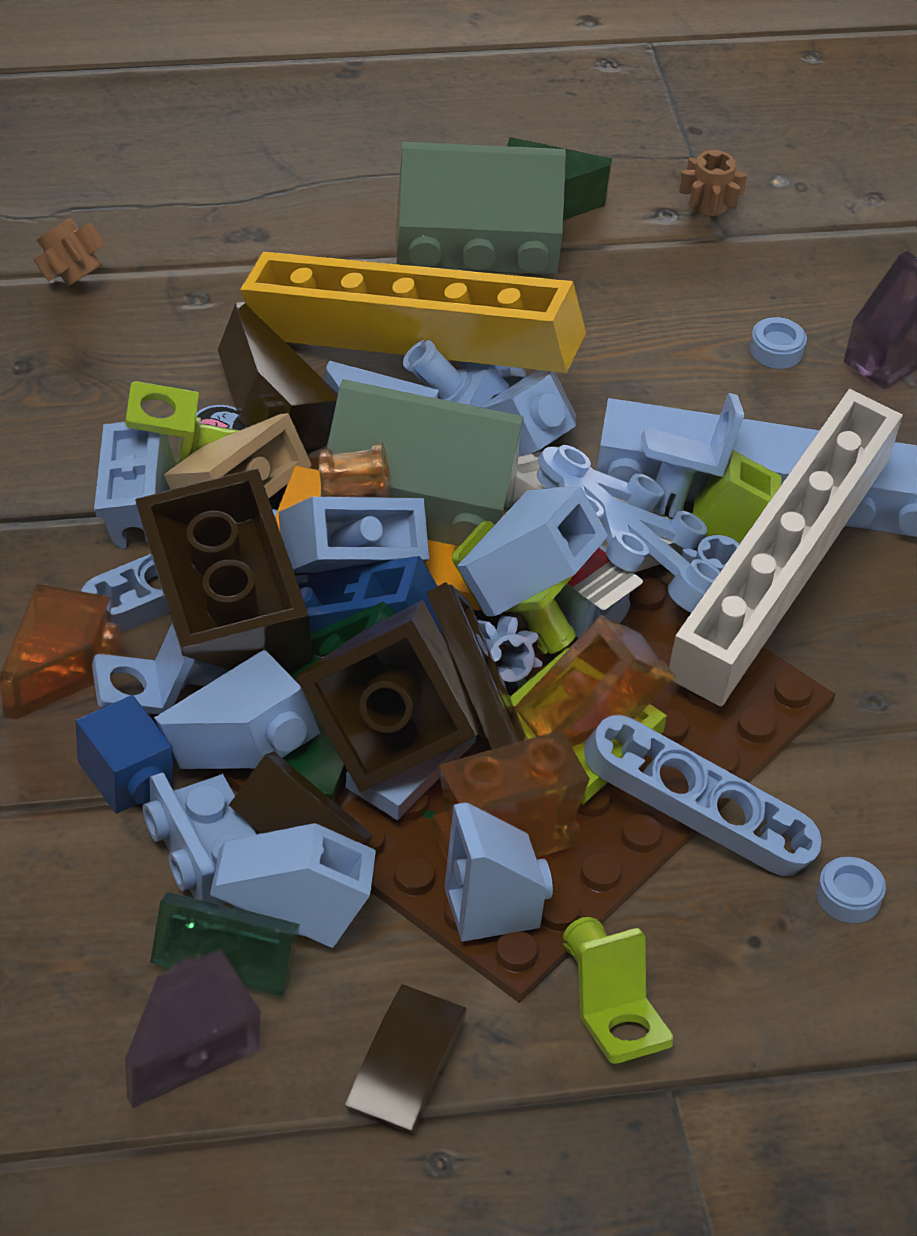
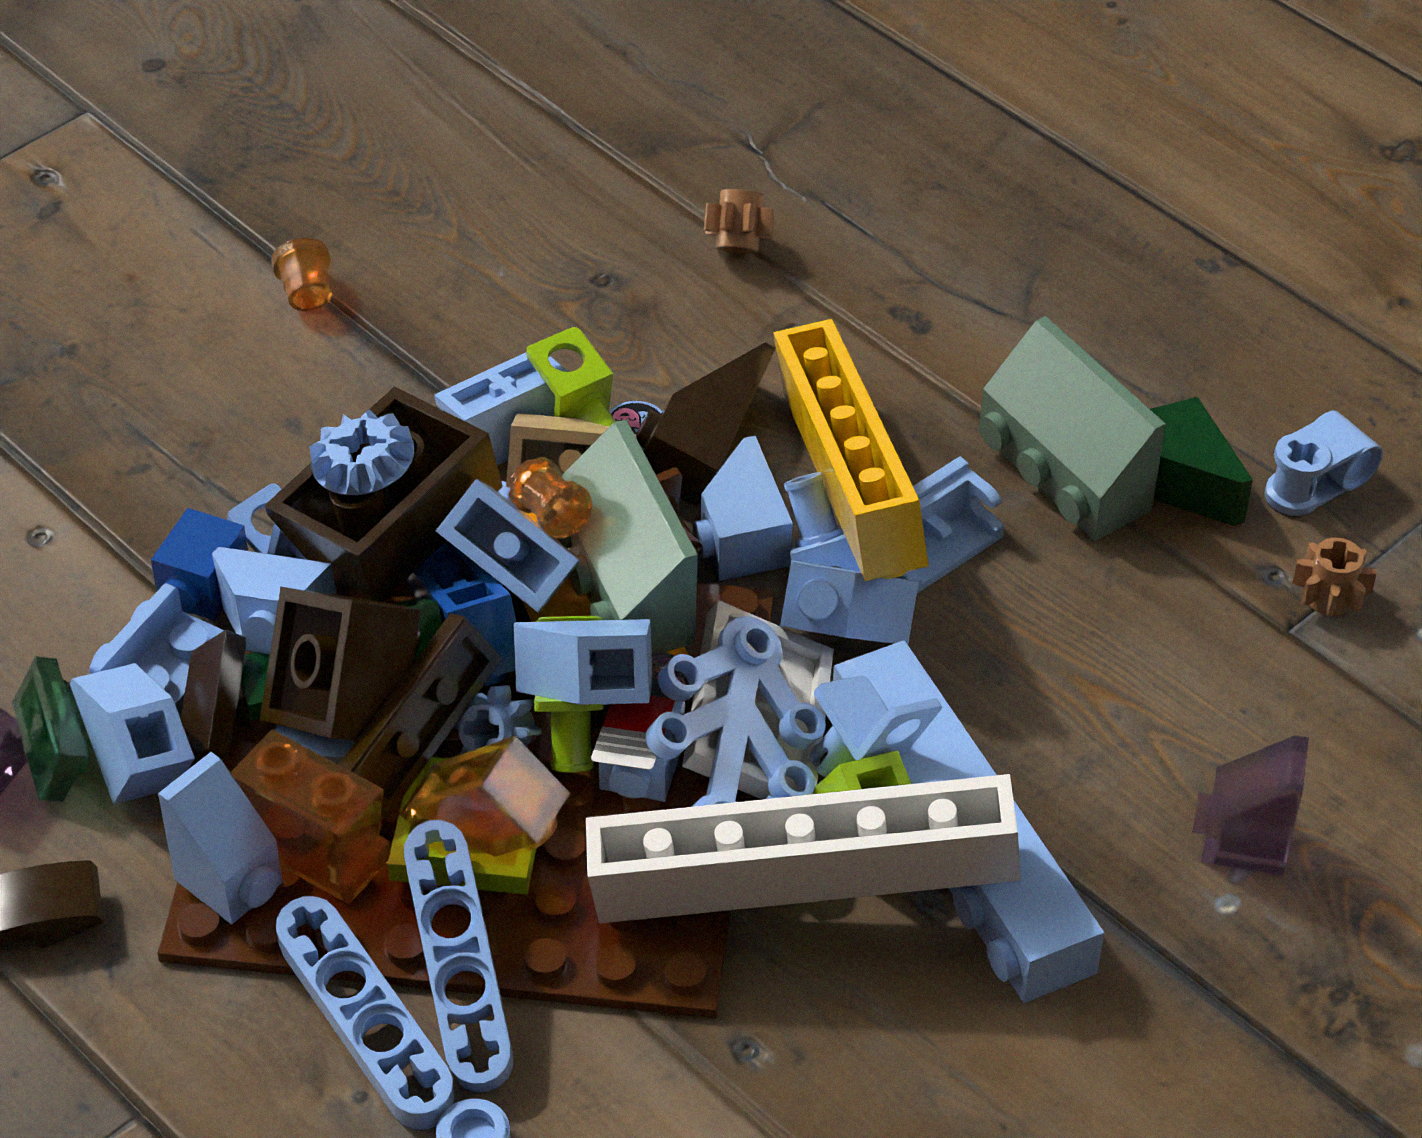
camera: 60 degrees right, 0 degrees up
(56, 648) = (259, 454): clear orange slope -> none
(205, 572) = (376, 465): none -> light blue gear
(603, 125) = (1320, 464): none -> light blue piece
(614, 988) = (198, 1007): lime bracket -> none
(696, 898) = (359, 1013): none -> light blue beam
(777, 343) = (1169, 742): light blue tile -> none

